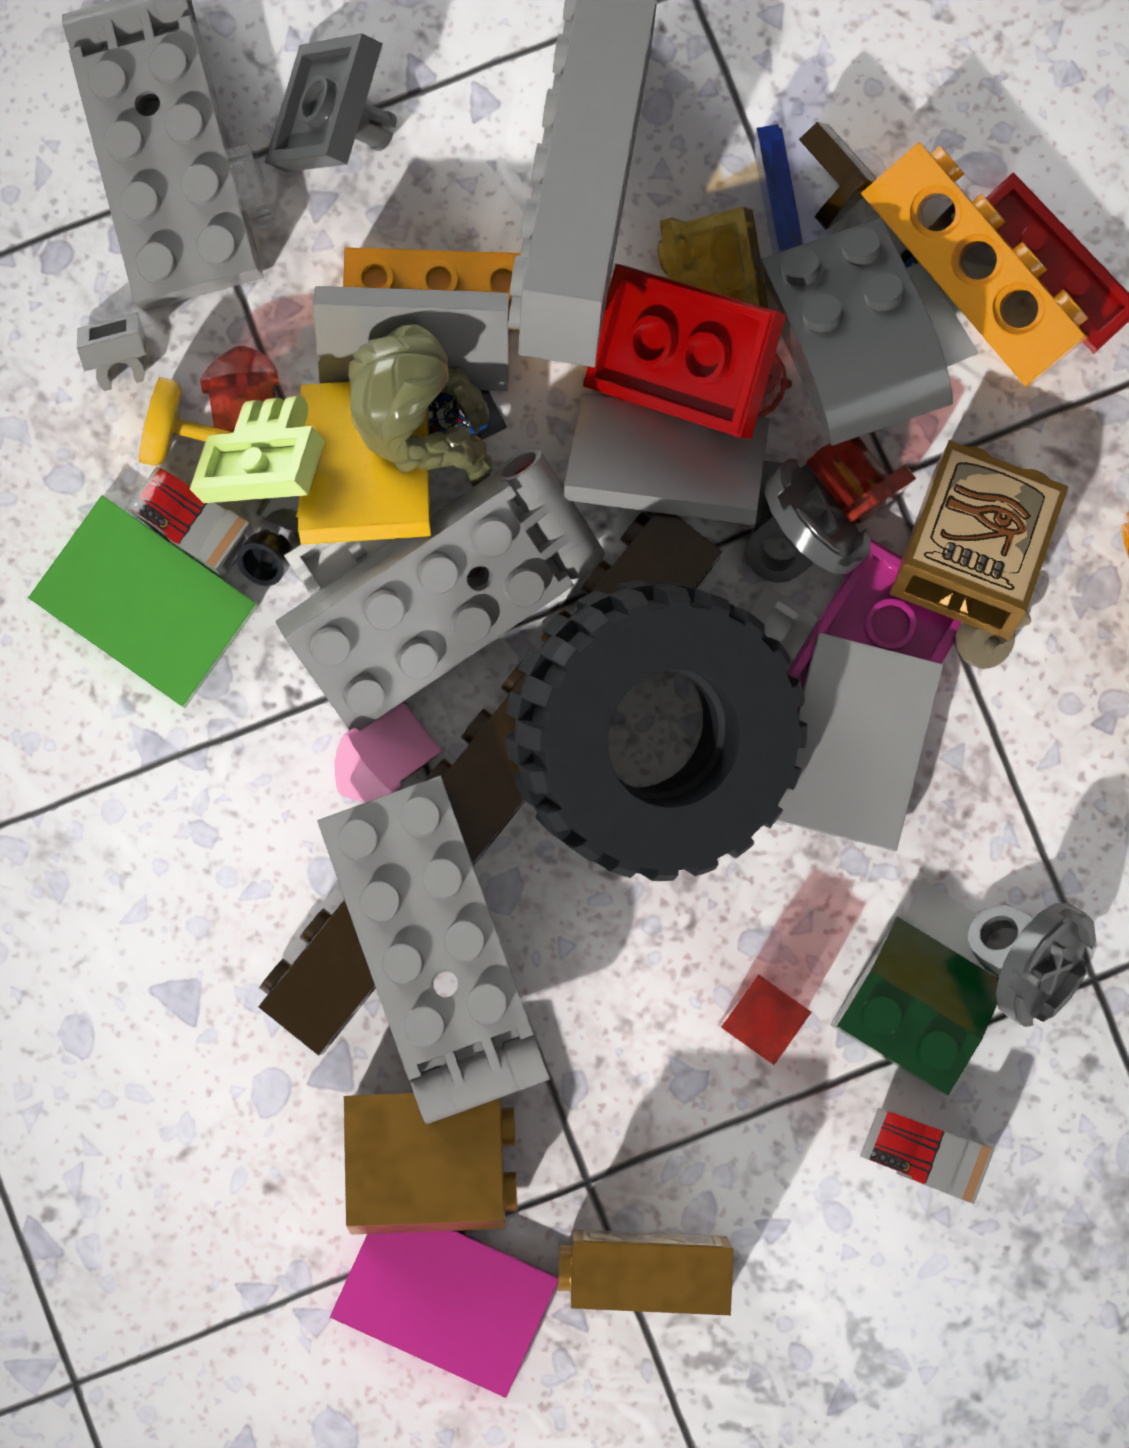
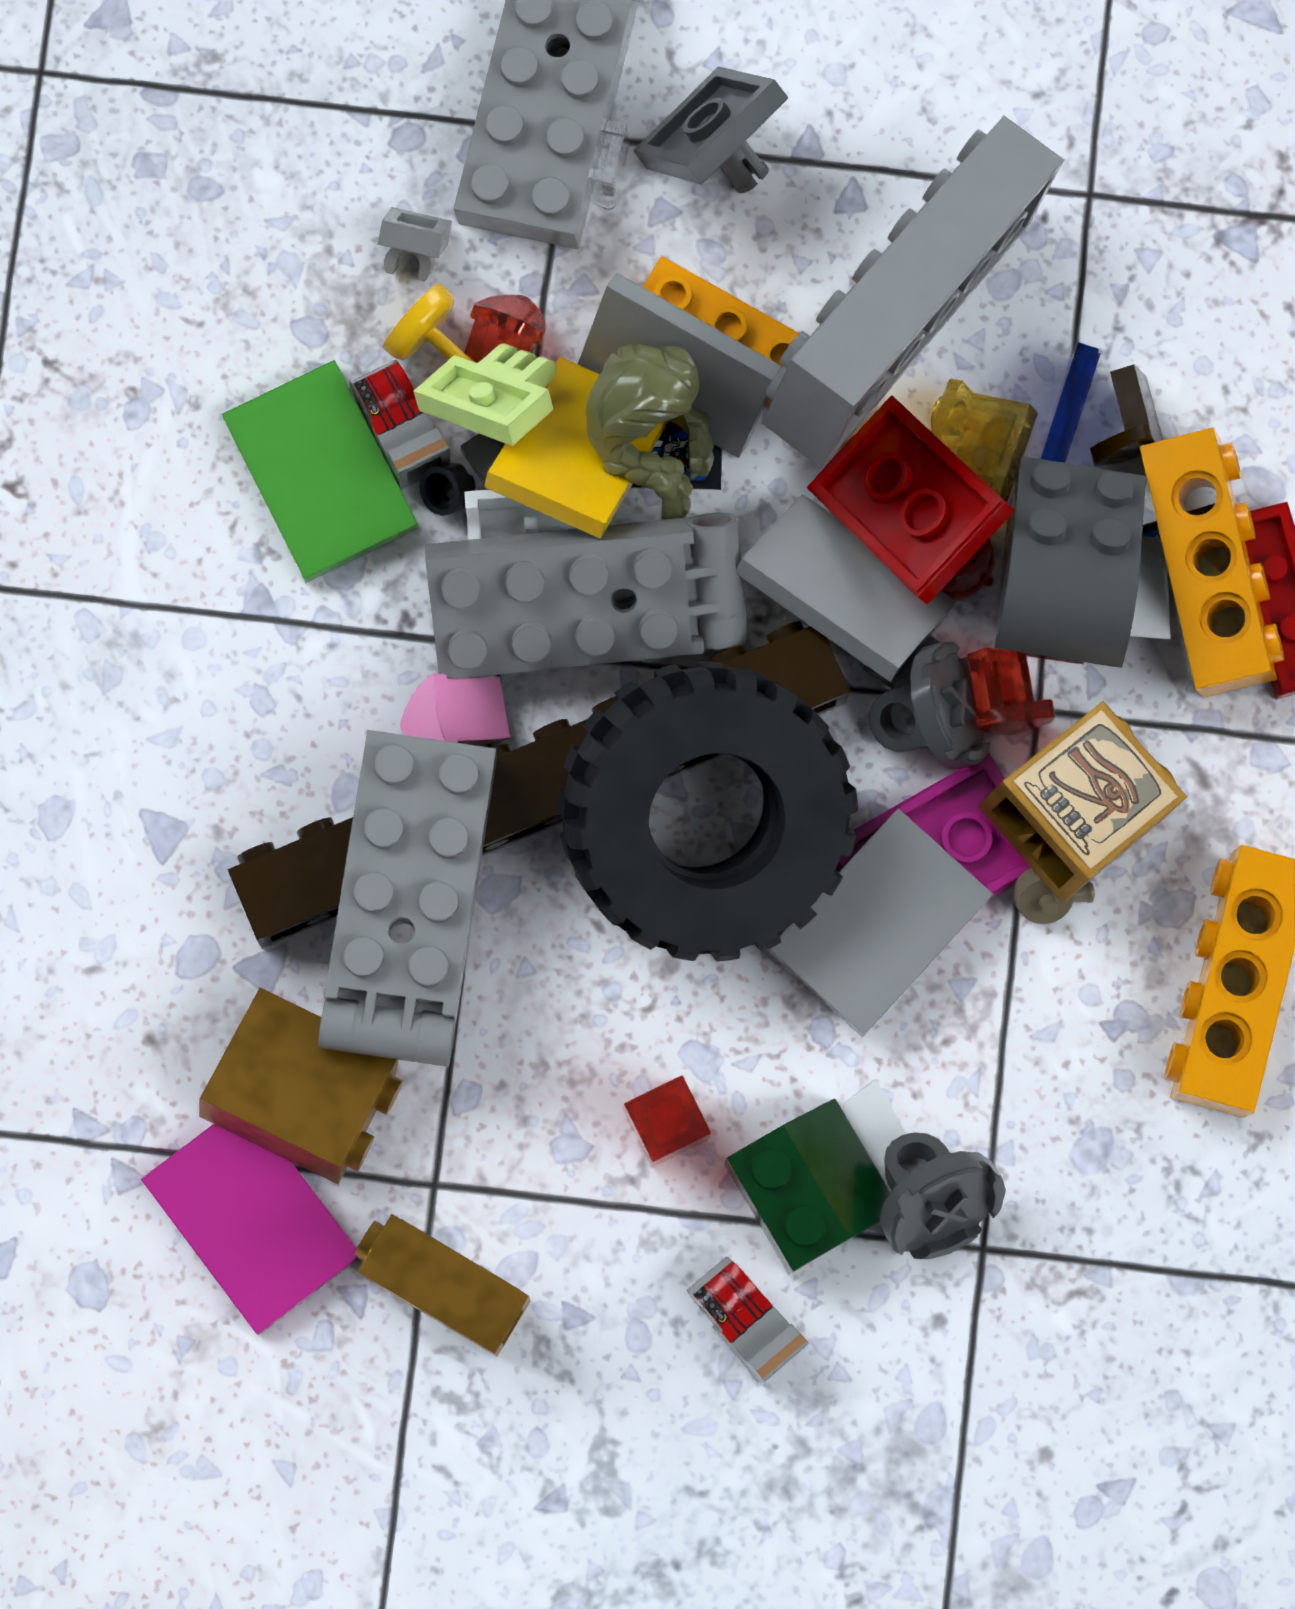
camera: 20 degrees right, 5 degrees down
(784, 620) = (874, 786): light grey tile -> none

